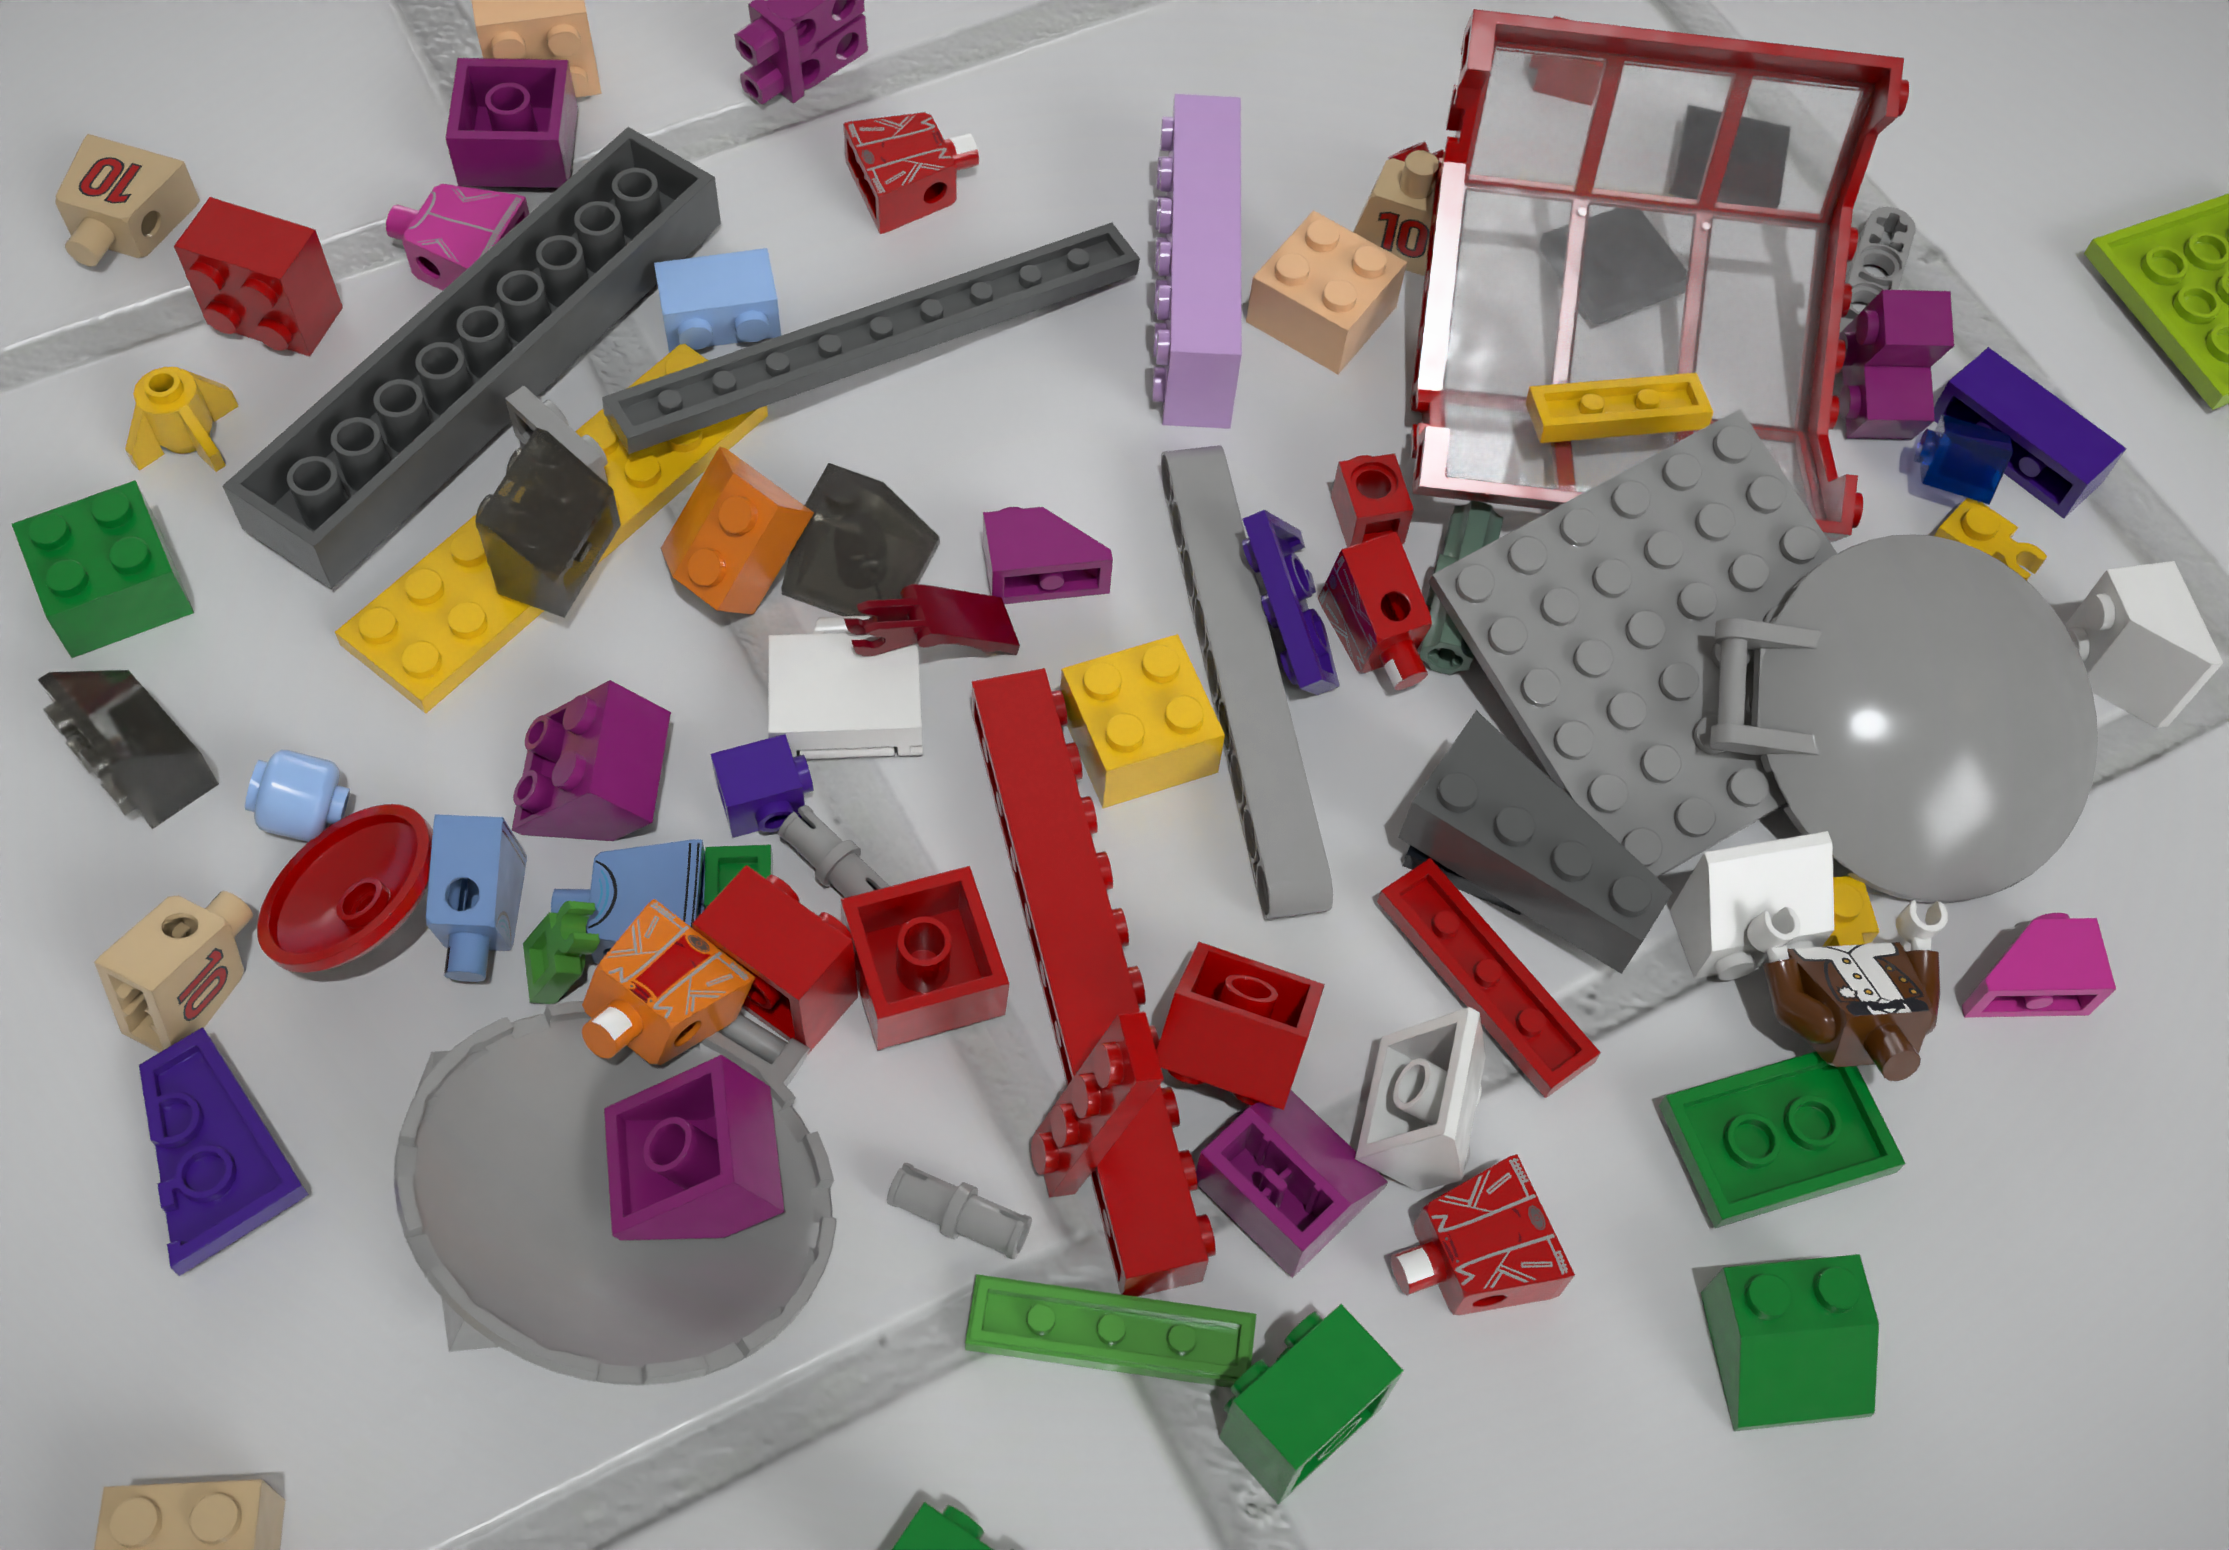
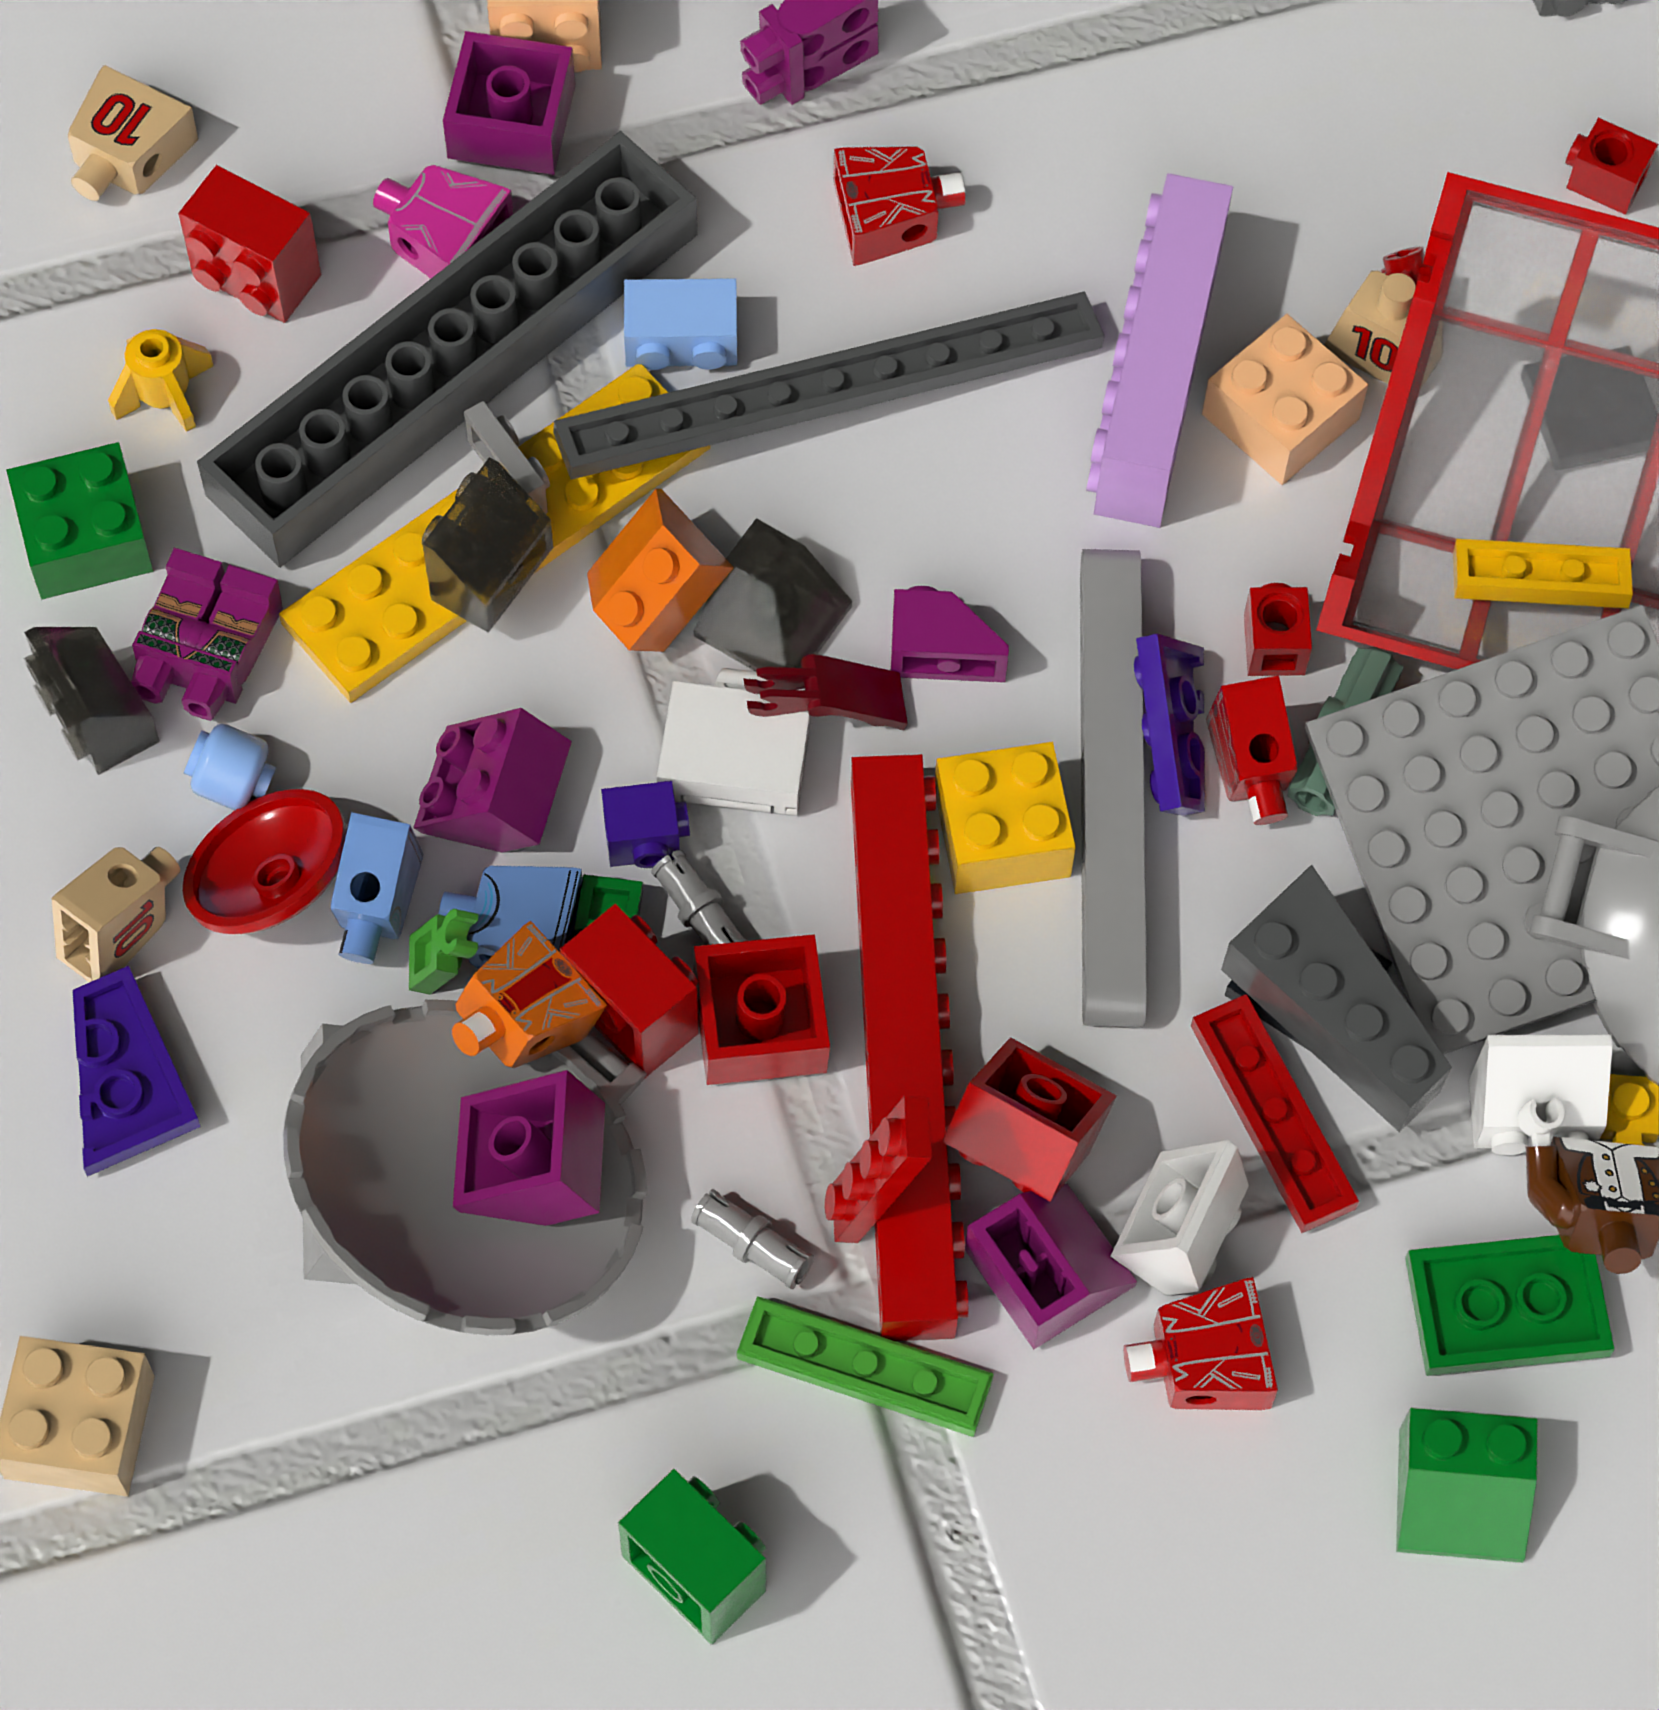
camera: 15 degrees right, 5 degrees up
(253, 662) = (204, 632): none -> magenta hips
(1308, 1401) = (1016, 1452): green brick -> none

